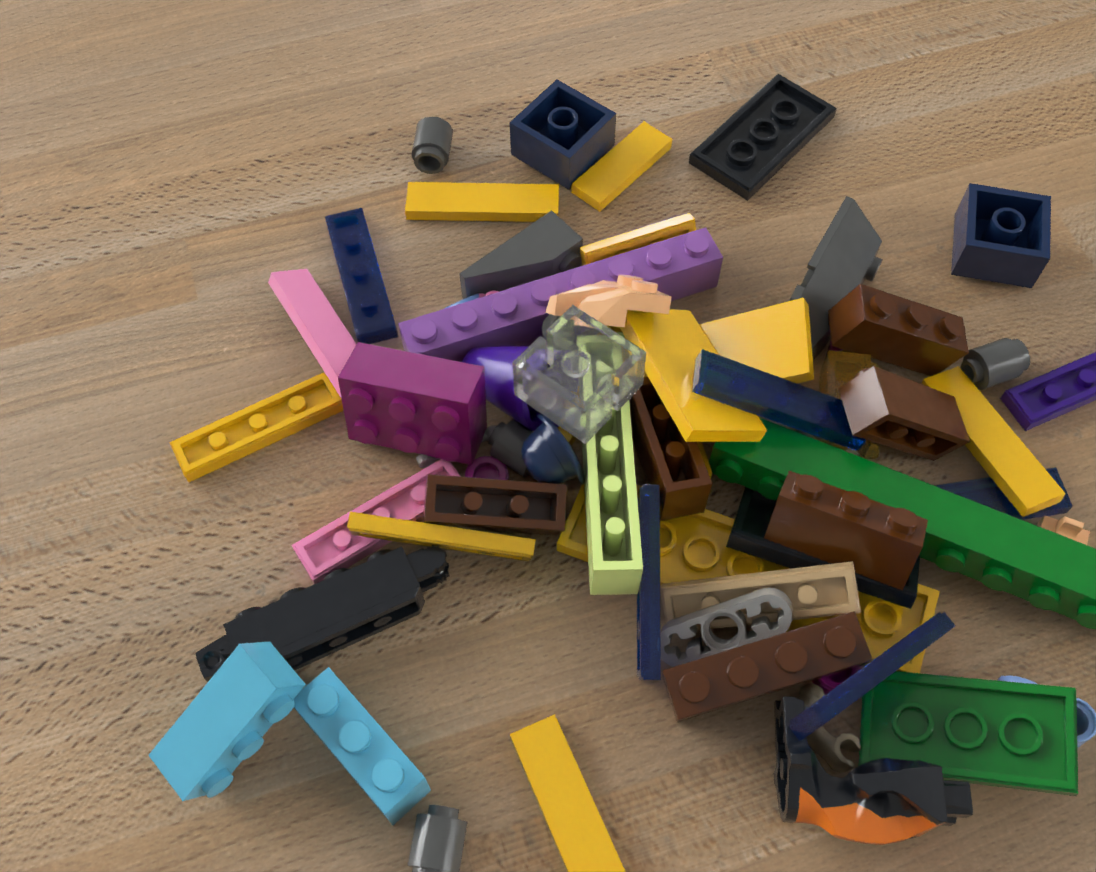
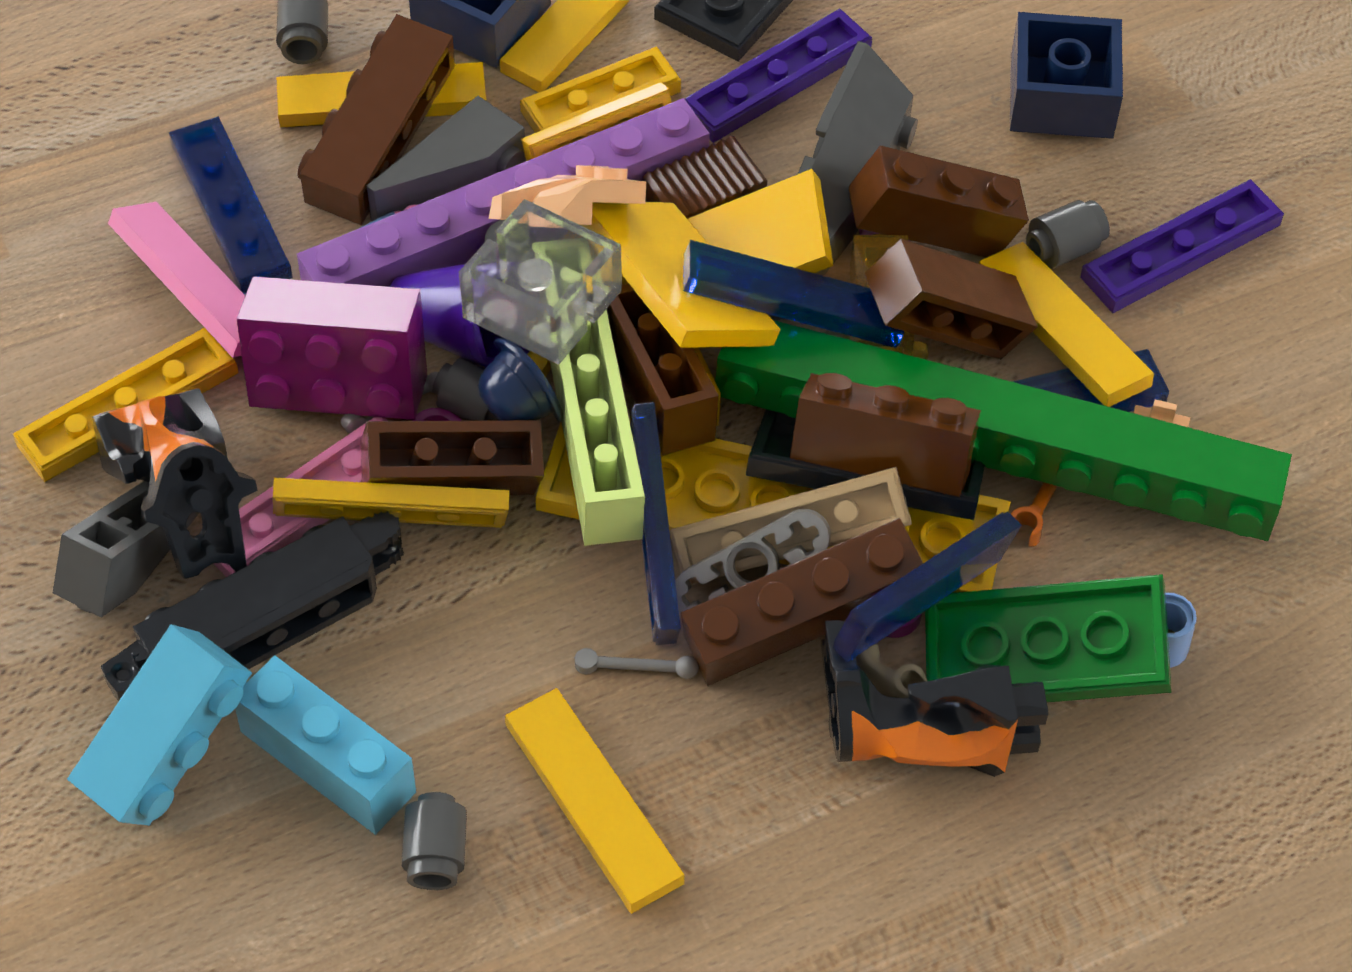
camera: 10 degrees left, 5 degrees down
(234, 544) = (110, 554): none -> dark grey slope
(277, 476) = (184, 457): none -> black hips
(475, 219) = (377, 117): none -> reddish brown brick
(582, 689) = (588, 661): none -> light grey hinge
(642, 213) = (599, 89): none -> yellow tile
(716, 293) = (705, 178): none -> reddish brown brick
(777, 213) = (777, 74): none -> dark purple tile
(956, 600) = (1032, 514): none -> orange hand

